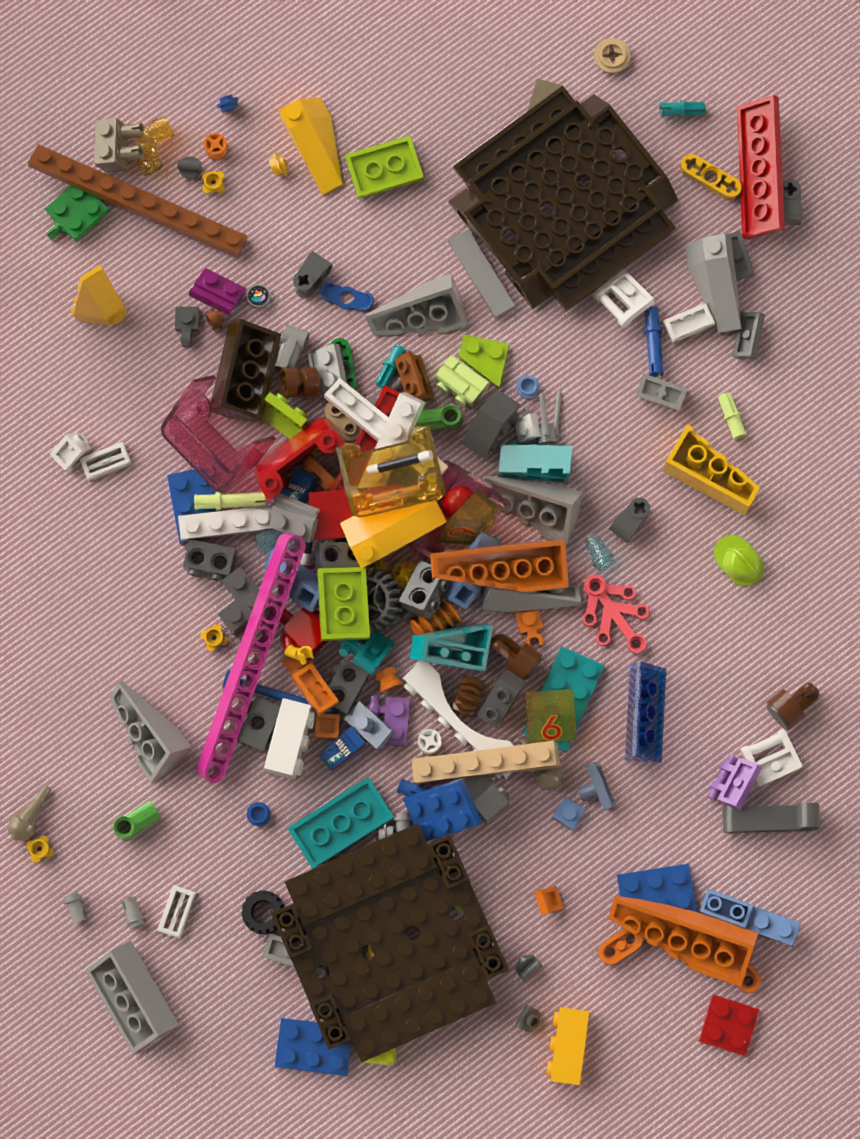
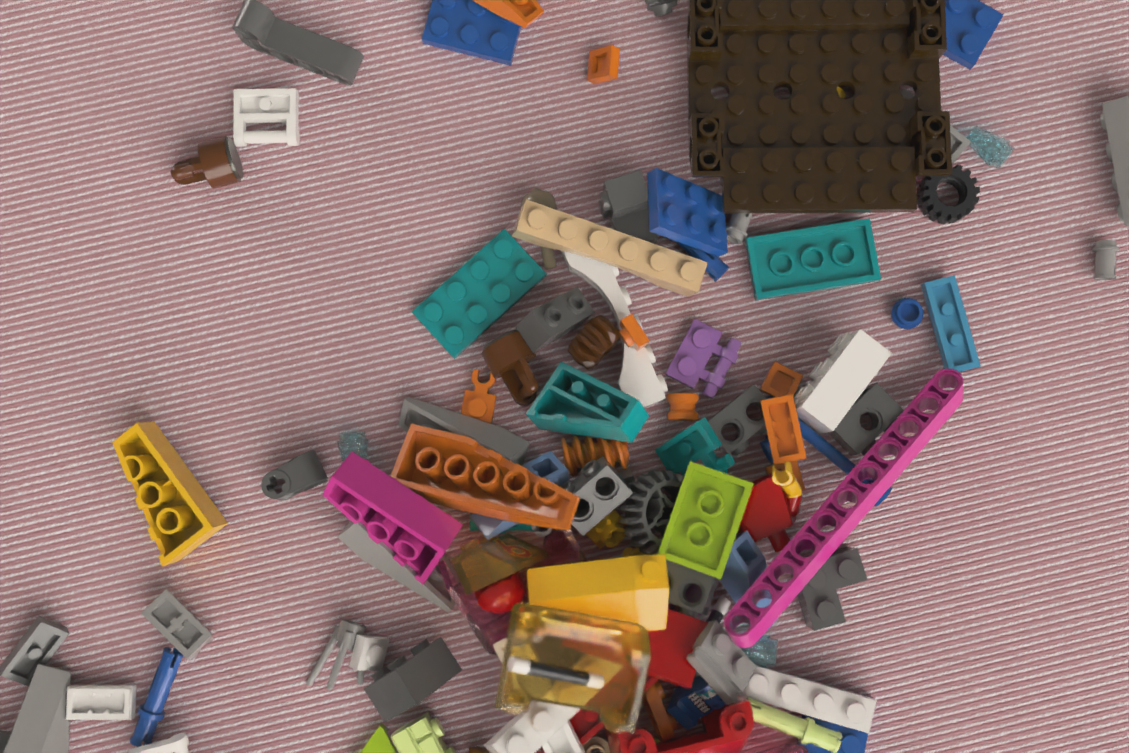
camera: 160 degrees left, 5 degrees up
(138, 819) = (1062, 366): bright green piece -> none
(155, 738) = (998, 453): light grey wedge -> none
(184, 892) = (1032, 259): white tile -> none
(211, 554) = (843, 660): dark grey brick -> none
(216, 631) = (884, 561): yellow plate -> none
(225, 818) = (950, 324): none -> dark azure plate
(246, 960) = (990, 147): none -> clear light blue cone
(342, 748) = (773, 347): blue leg -> none
(369, 725) = (731, 358): tile -> none
(386, 831) = (762, 223): light grey plate -> none
(431, 738) = (667, 306): white wheel -> none
(436, 418) = (480, 718): bright green piece -> none
(444, 709) = (632, 333): none -> orange plate
(527, 387) = (344, 708): medium blue plate -> none
(535, 462) = (377, 602): wedge -> none
(550, 519) = (392, 514): none -> dark pink wedge
(550, 716) = (504, 273): clear yellow slope -> none
(568, 813) = (534, 157): medium blue plate -> none
(598, 787) = (485, 169): sand blue tile -> none
(612, 611) = (371, 374): coral plant -> none
(645, 713) = (391, 233): clear blue slope -> none
(732, 416) = (107, 555): yellowish green axle -> none
(738, 560) = (190, 371): lime piece -> none
(738, 784) = (318, 96): medium lavender plate -> none

